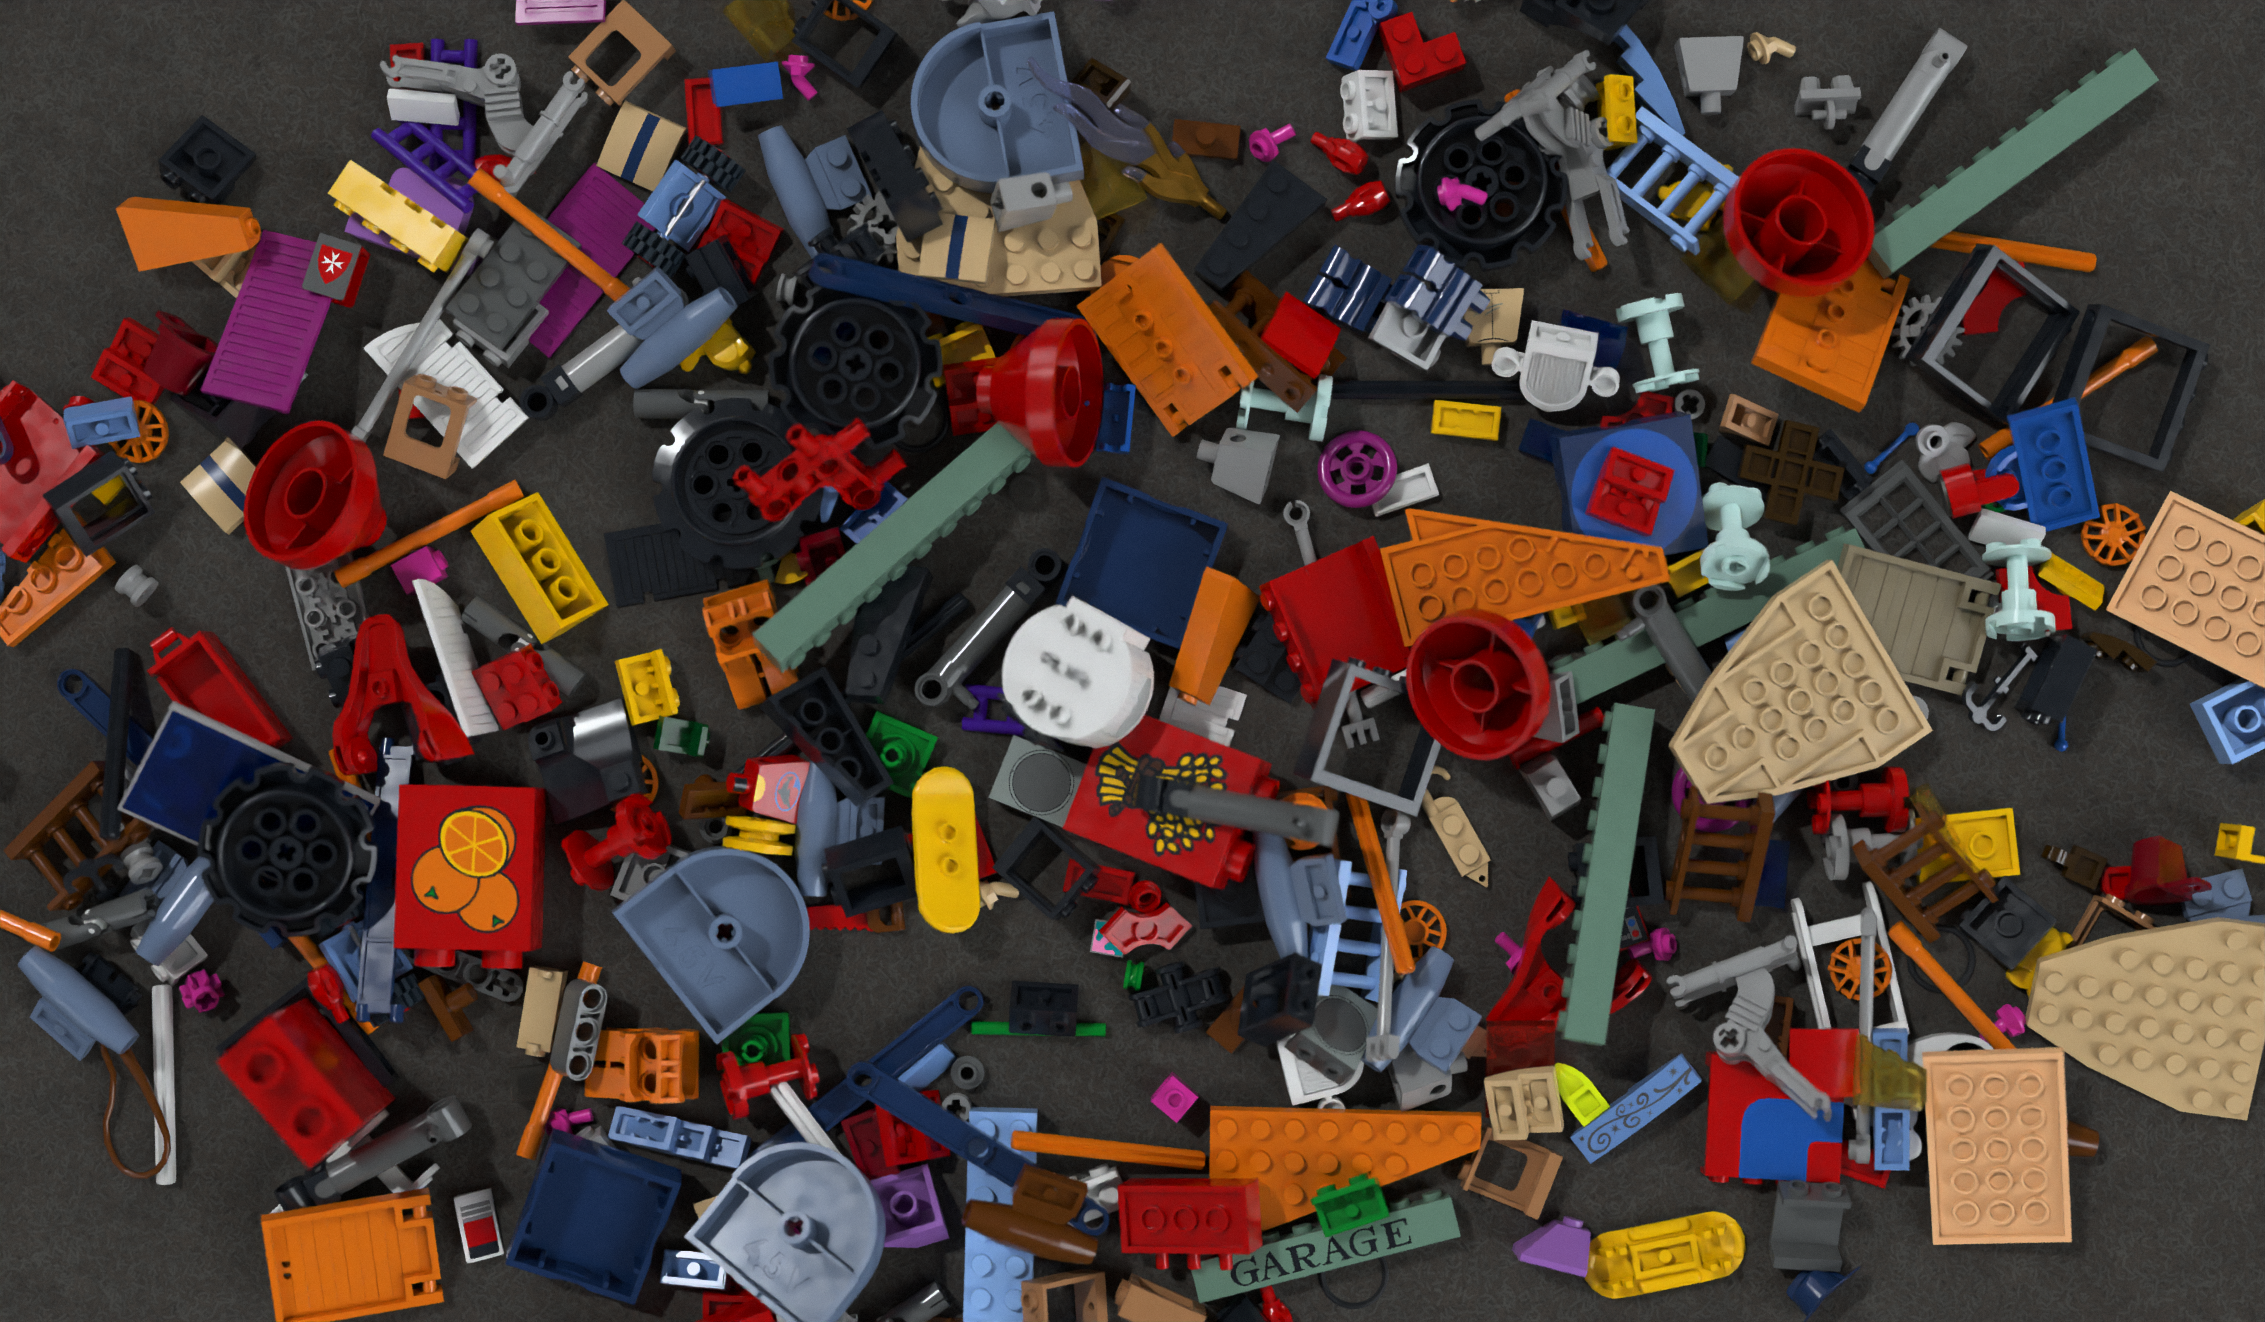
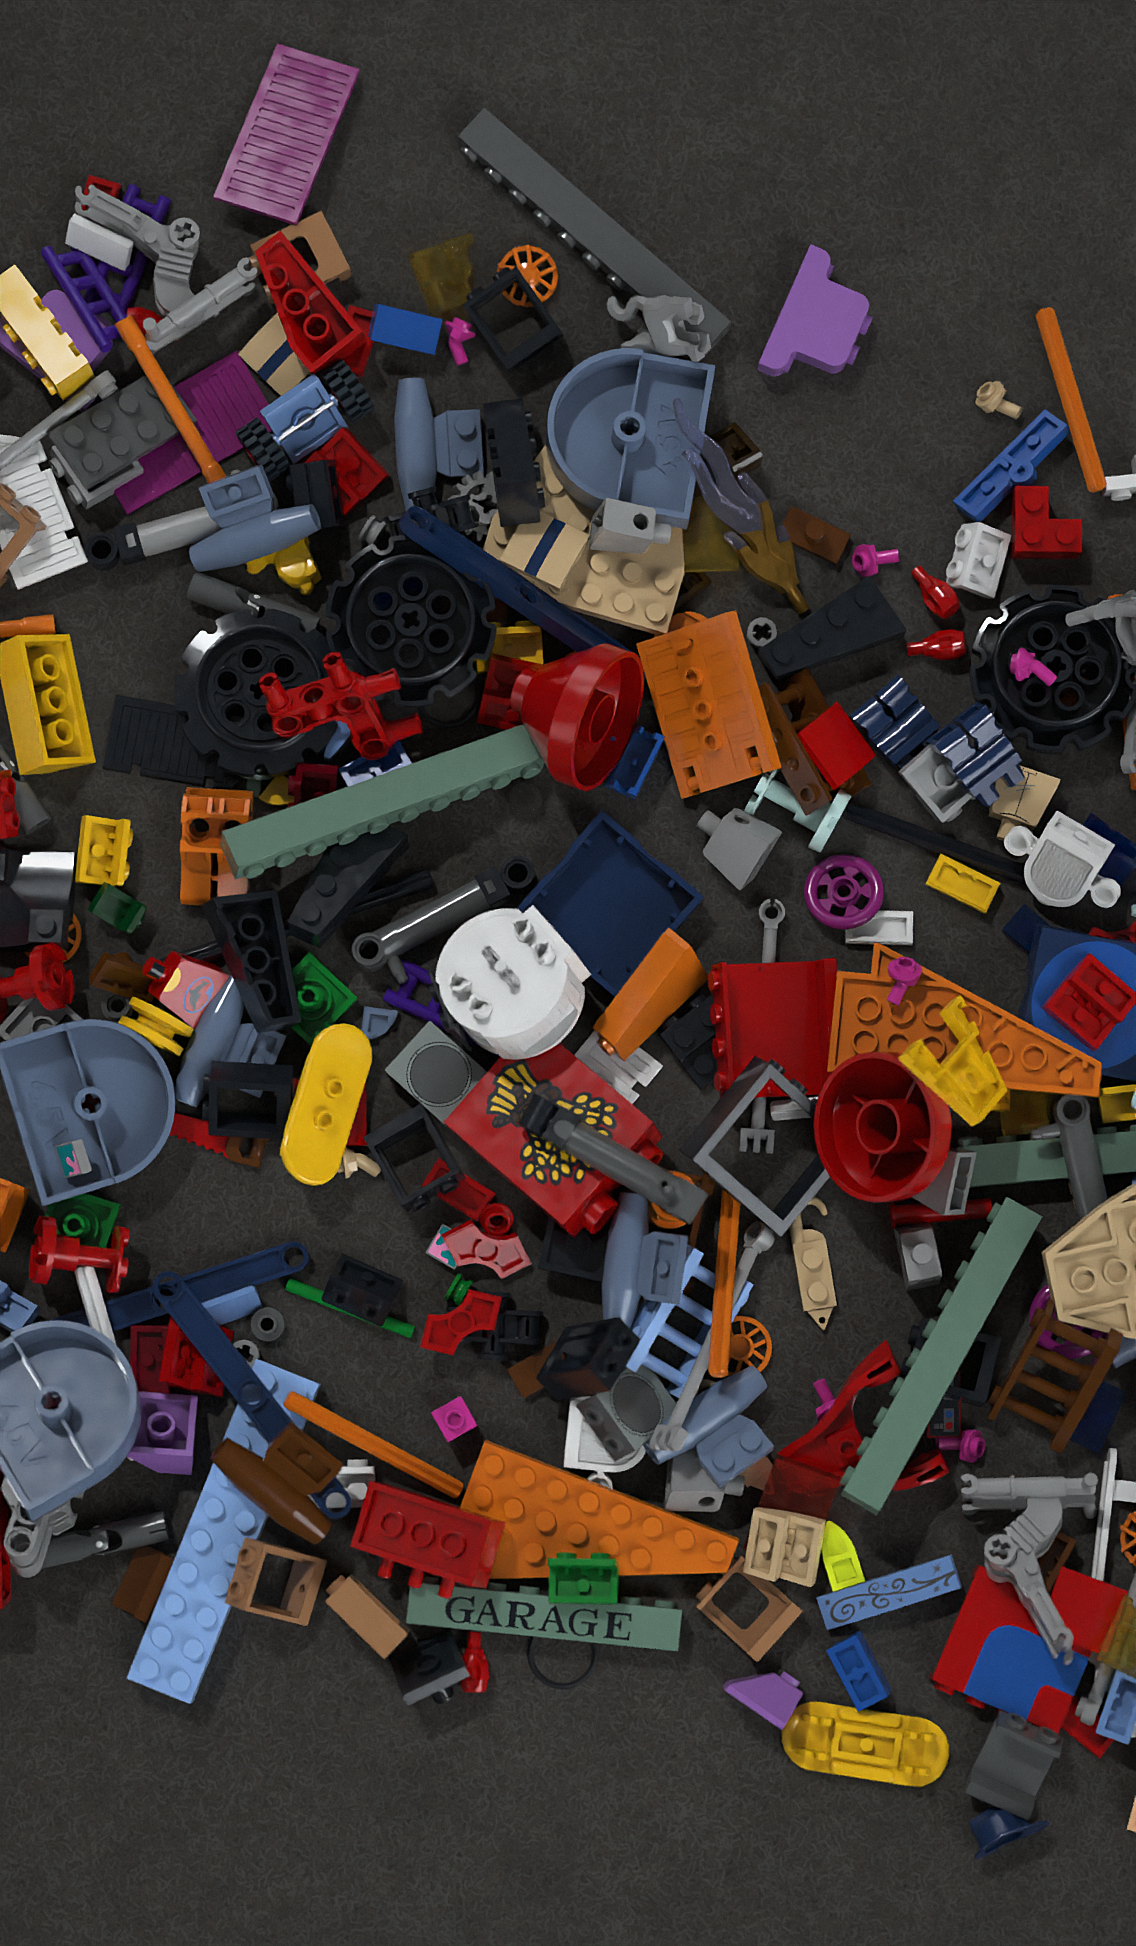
camera: 15 degrees right, 5 degrees down
(651, 104) = (310, 314): none -> red wedge
(728, 988) = (73, 1158): none -> tile
(964, 752) = (377, 1021): none -> sand blue tile
(1137, 1019) = (475, 1313): none -> red tile
(1185, 241) = (760, 623): none -> light grey bush
(1445, 528) = (906, 974): none -> dark pink plate
(1541, 609) = (966, 1076): none -> yellow wing
(1634, 1191) = (859, 1670): none -> blue hinge

